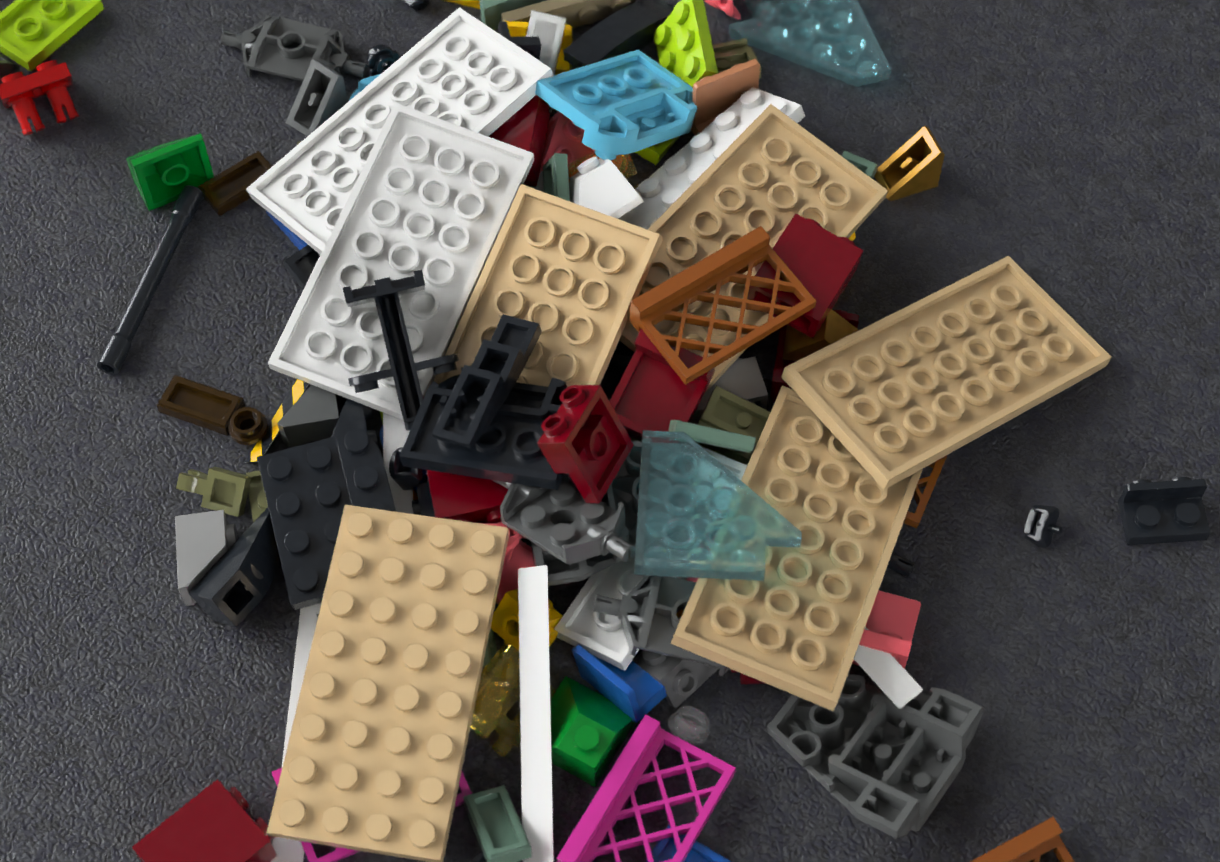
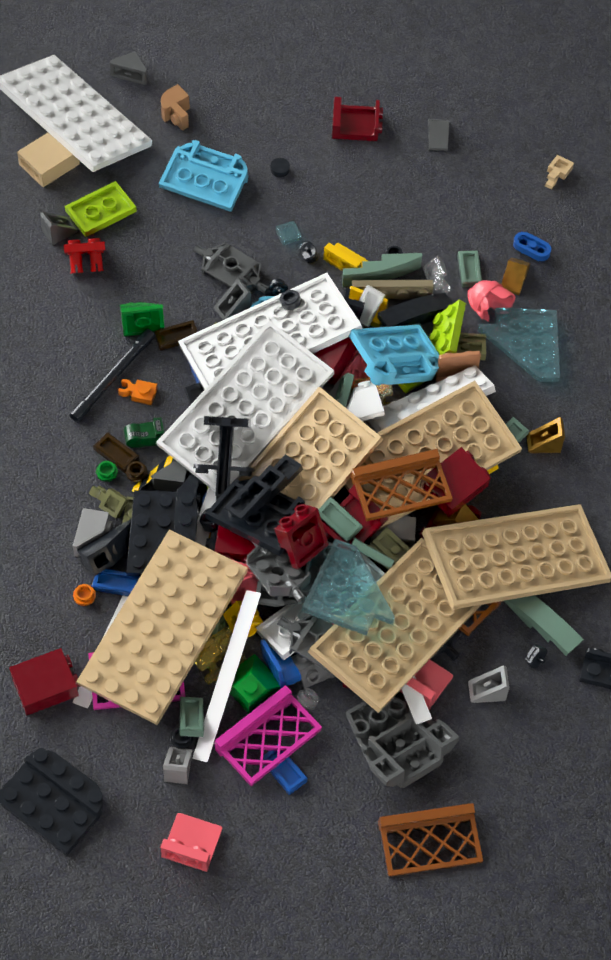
camera: 15 degrees right, 0 degrees up
(195, 441) = (106, 471): none -> green plate
(210, 292) = (141, 392): none -> orange plate
(227, 669) = (84, 595): none -> orange plate
(240, 358) = (143, 434): none -> dark green leg
(276, 629) = (114, 582): none -> blue tile
(414, 66) = (290, 300): none -> black tile
(637, 397) = (339, 520): none -> sand green tile
(991, 600) = (490, 686): none -> light grey slope
(1038, 463) = (546, 622): none -> sand green slope

